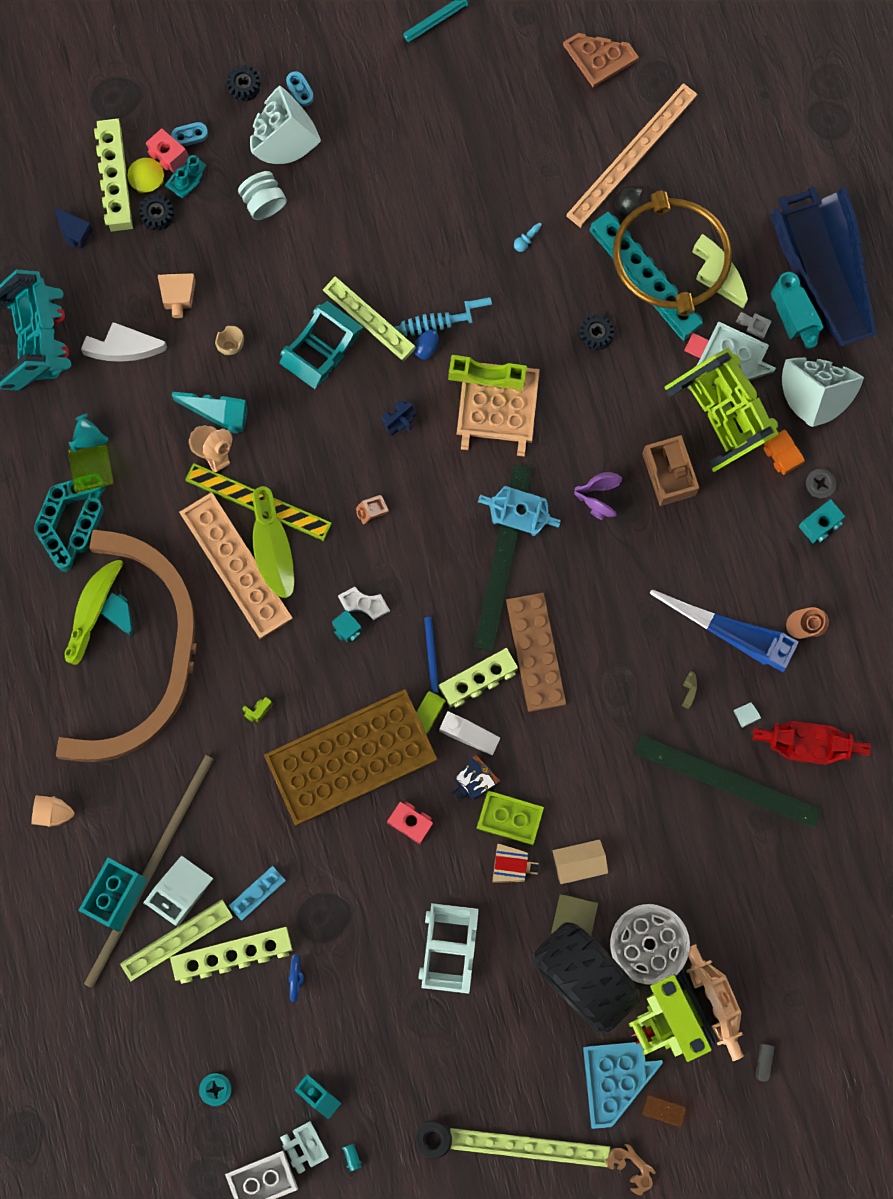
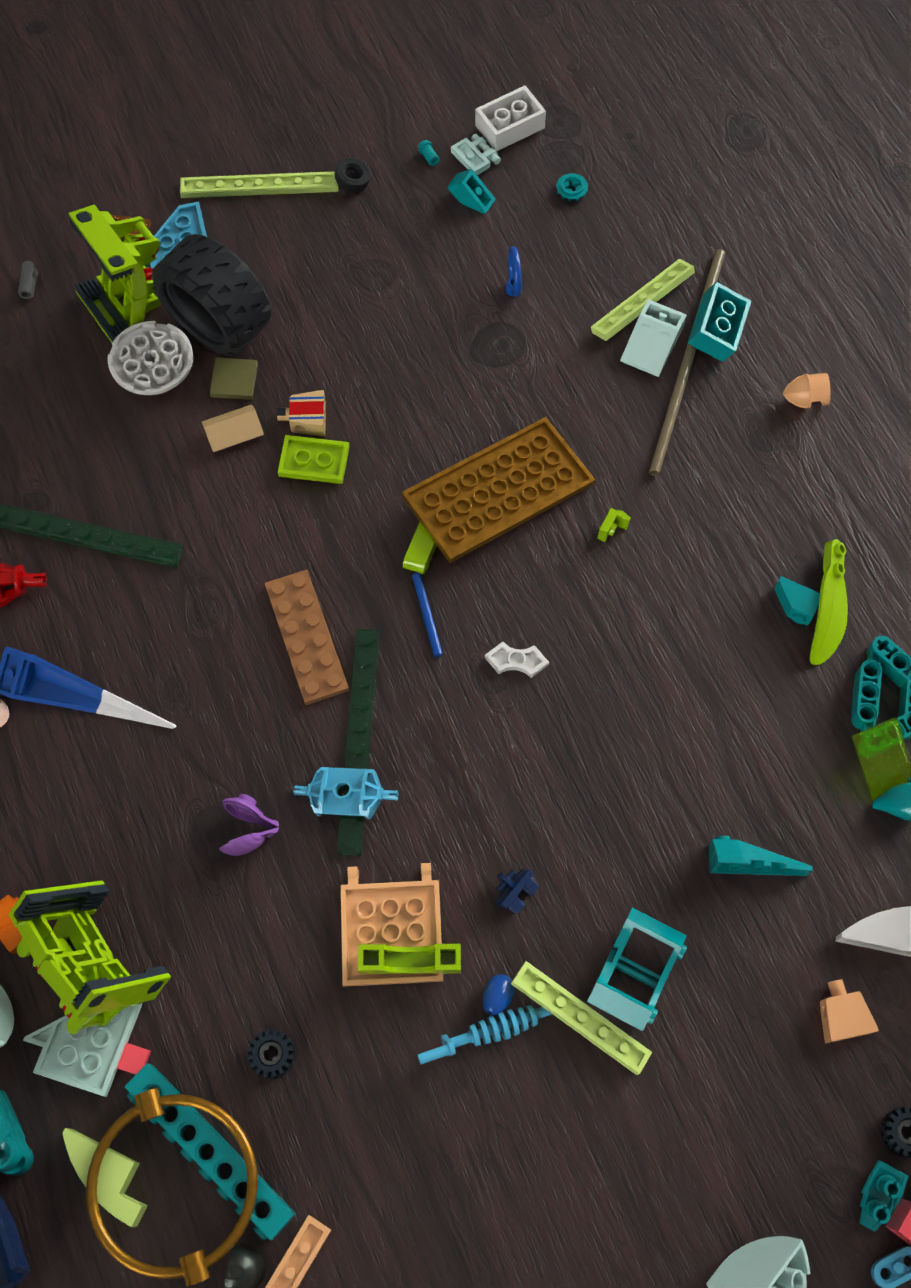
camera: 175 degrees right, 10 degrees down
(113, 748) = (747, 648): medium nougat arch -> none
(181, 962) = (583, 294): yellowish green brick -> none
(211, 445) = (748, 813): light nougat animal -> none
(230, 340) = (757, 956): tan hair -> none
(235, 565) = (678, 678): light nougat plate -> none
(242, 495) = (669, 758): tile -> none
(257, 893) = (571, 354): medium azure plate -> none
(262, 195) = (769, 1178): light aqua wheel -> none
(271, 546) = (639, 702): lime plant -> none
(346, 627) = (531, 626): teal brick -> none
(371, 508) = (528, 768): nougat bracket -> none
(416, 832) = (414, 429): coral brick -> none
(450, 915) = (360, 302): light aqua window -> none
(469, 733) = (373, 535): white slope -> none
(474, 780) = (357, 489): torso -> none
(501, 659) = (365, 605): yellowish green brick -> none
(522, 242) = (390, 1175): medium azure bar -> none
(642, 1181) = (149, 170): medium nougat helmet -> none
(669, 470) = (156, 870): medium nougat piece -> none
(691, 683) = (119, 615): olive slope -> none
(722, 999) = (74, 322): light nougat plate -> none
(747, 714) = (52, 603): light aqua slope -> none
(756, 325) = (51, 1101): light grey plate -> none

